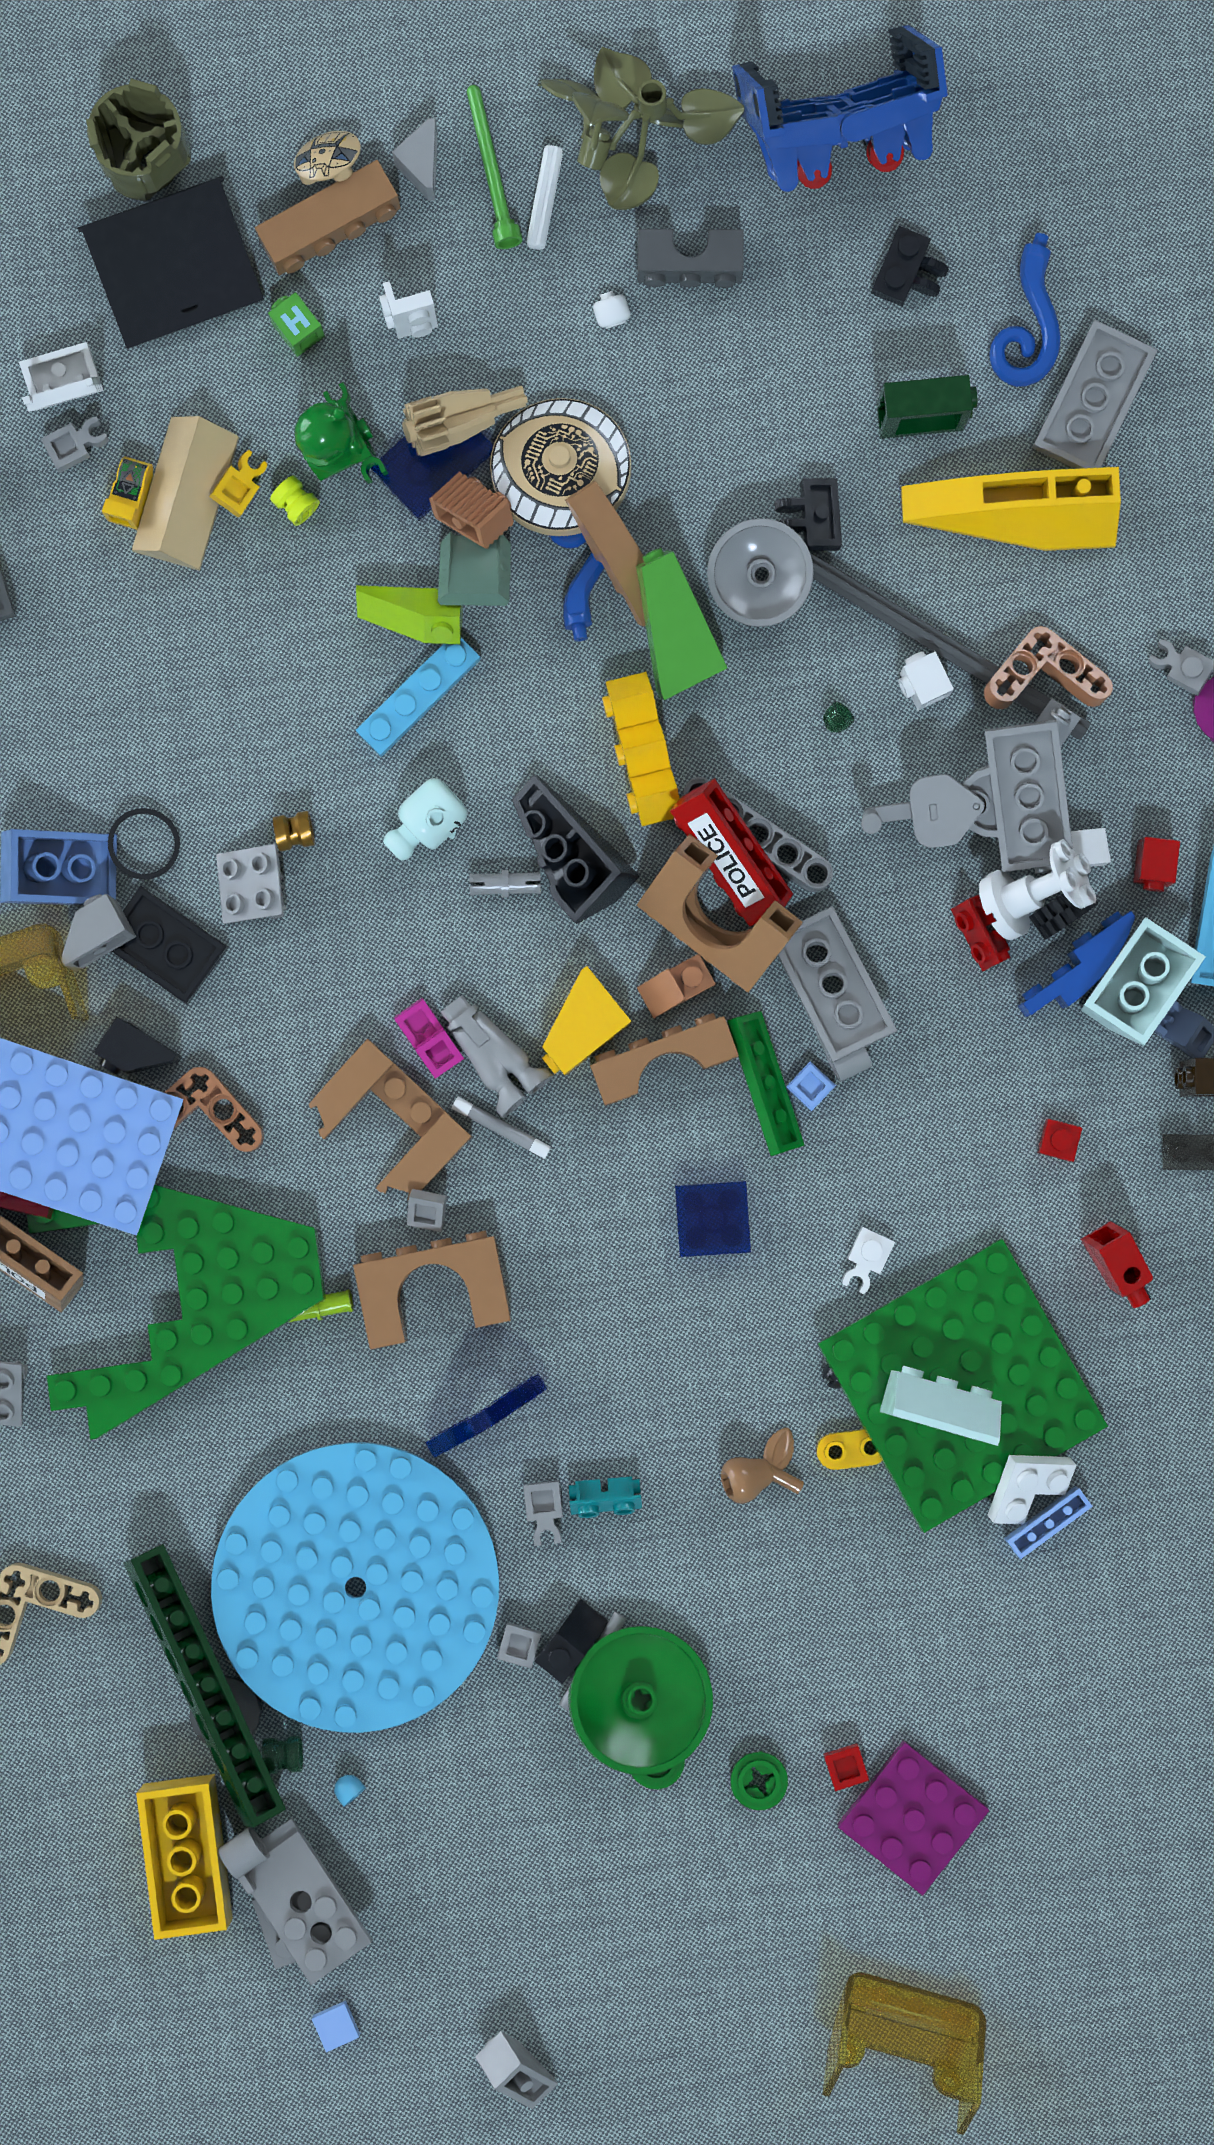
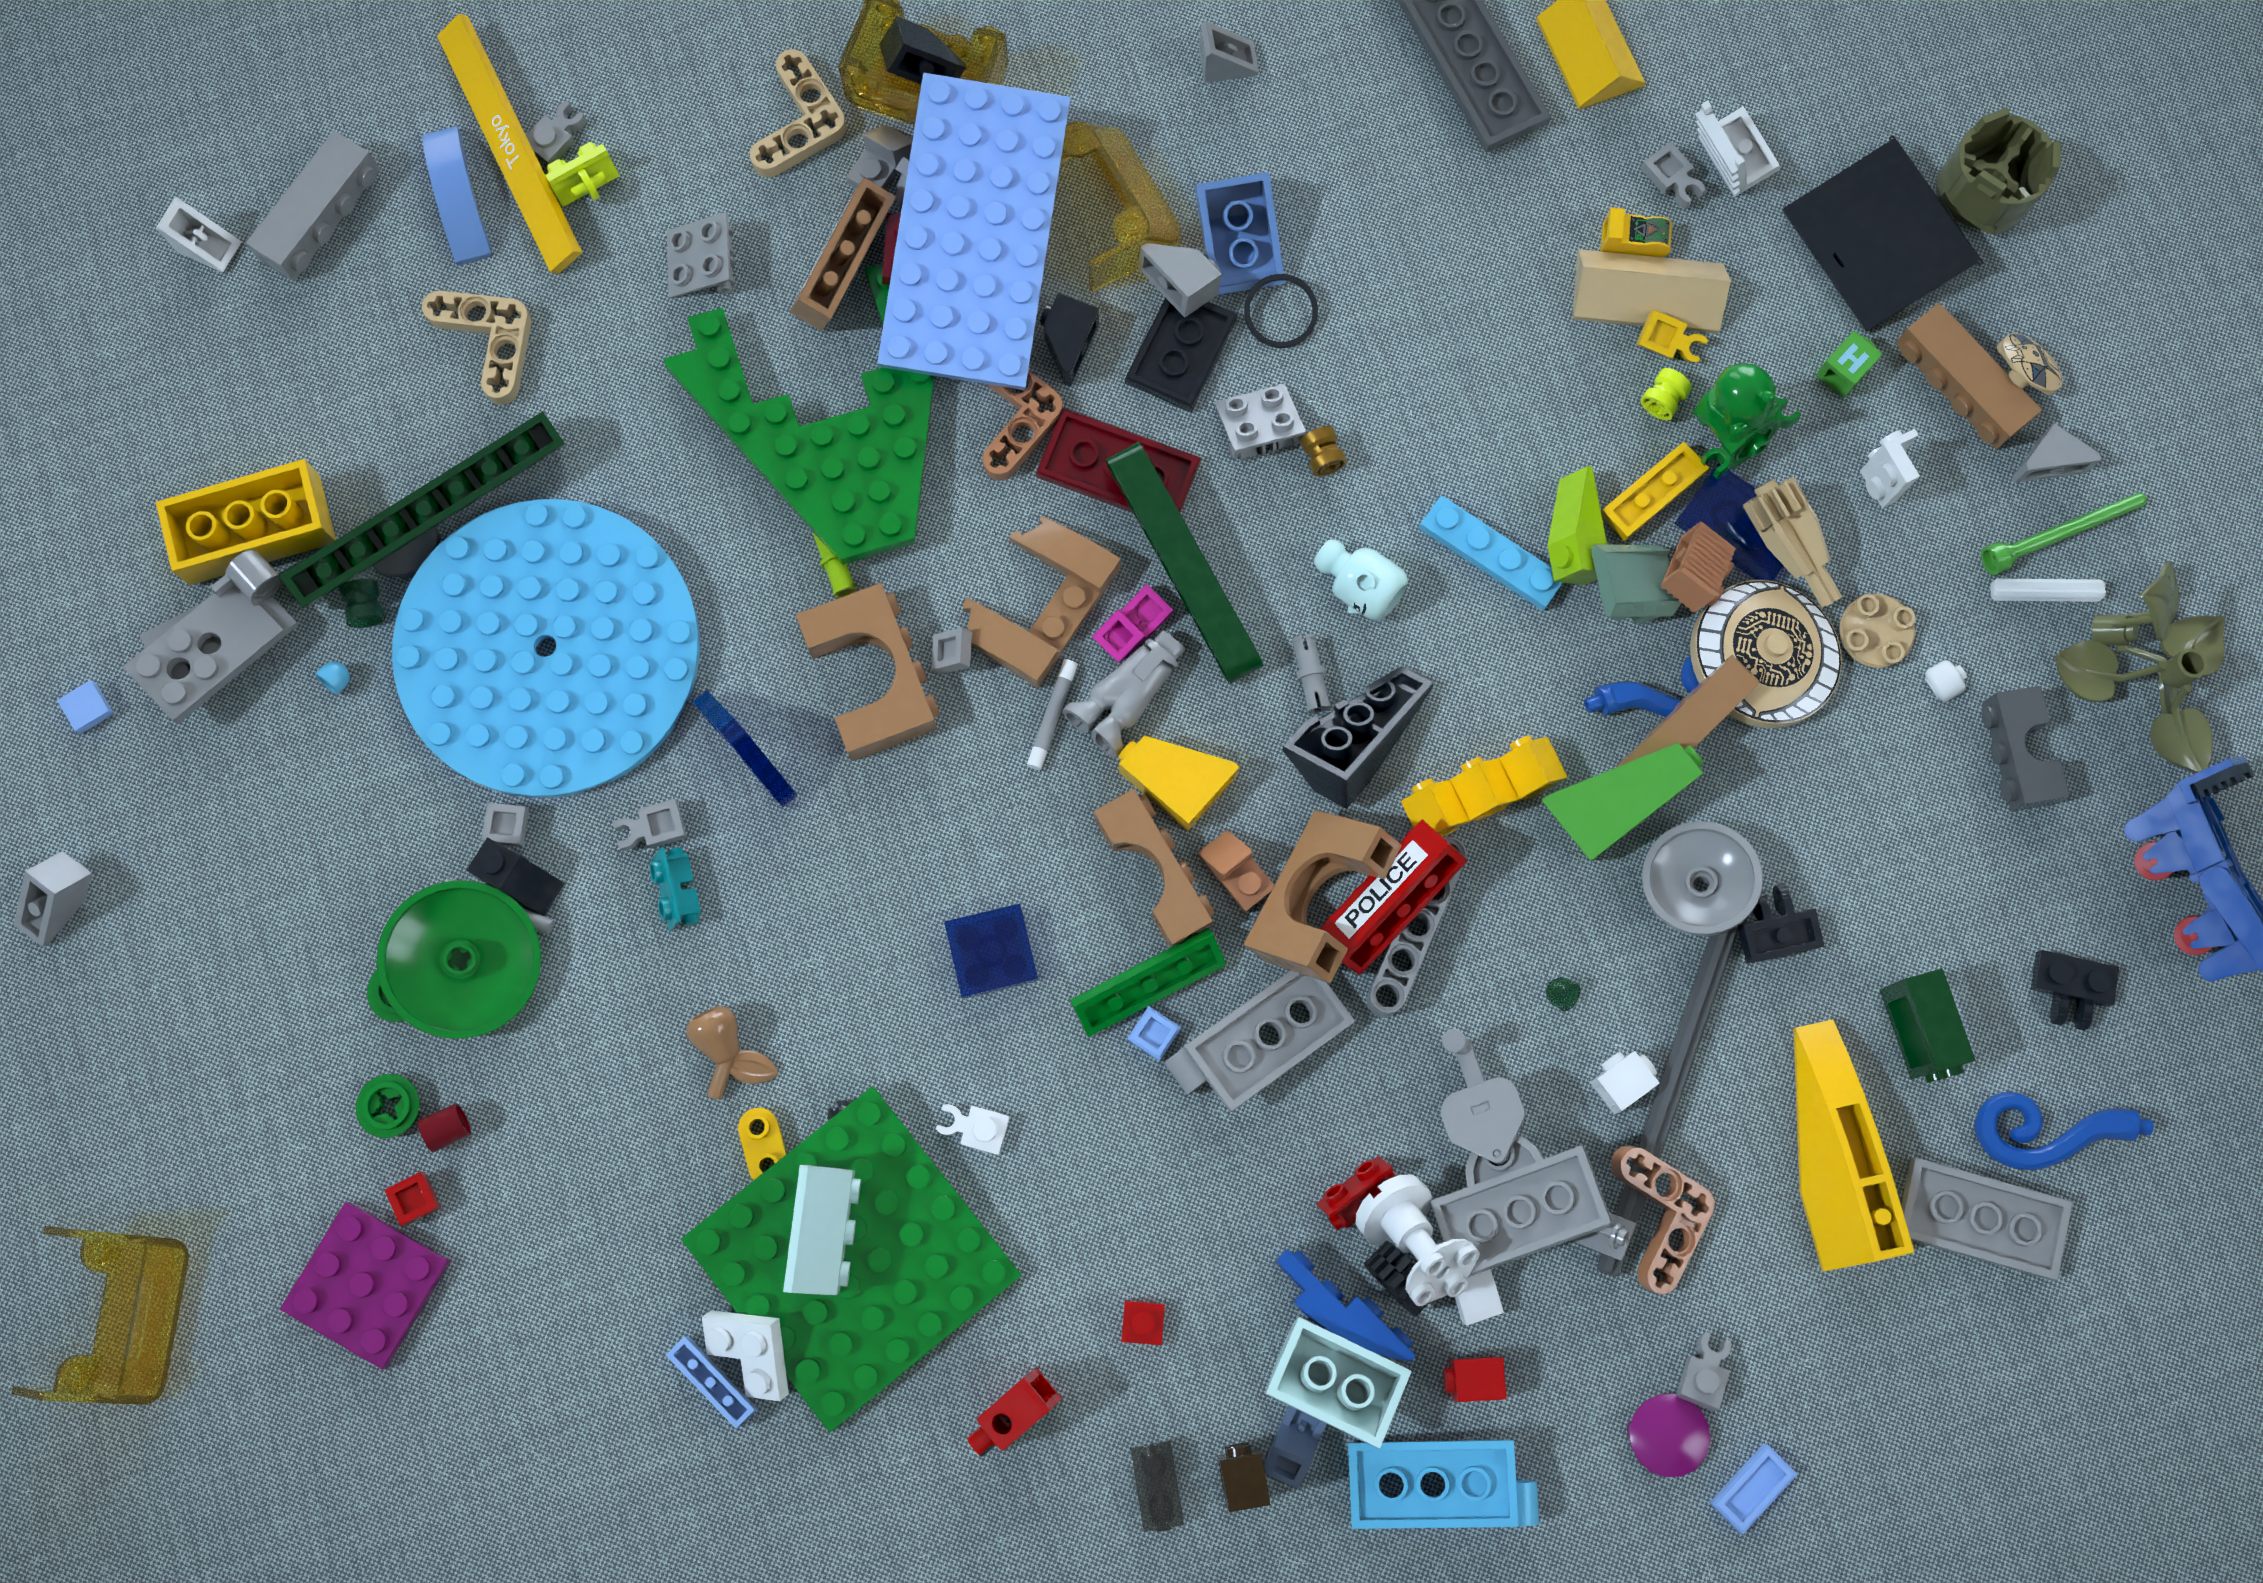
camera: 80 degrees right, 10 degrees down
(272, 1025) = (1078, 462): none -> dark red tile
(380, 981) = (1184, 563): none -> dark green beam
(387, 533) = (1654, 491): none -> yellow plate
(555, 360) = (1877, 630): none -> tan dish
(788, 1731) = (444, 1127): none -> dark red beam

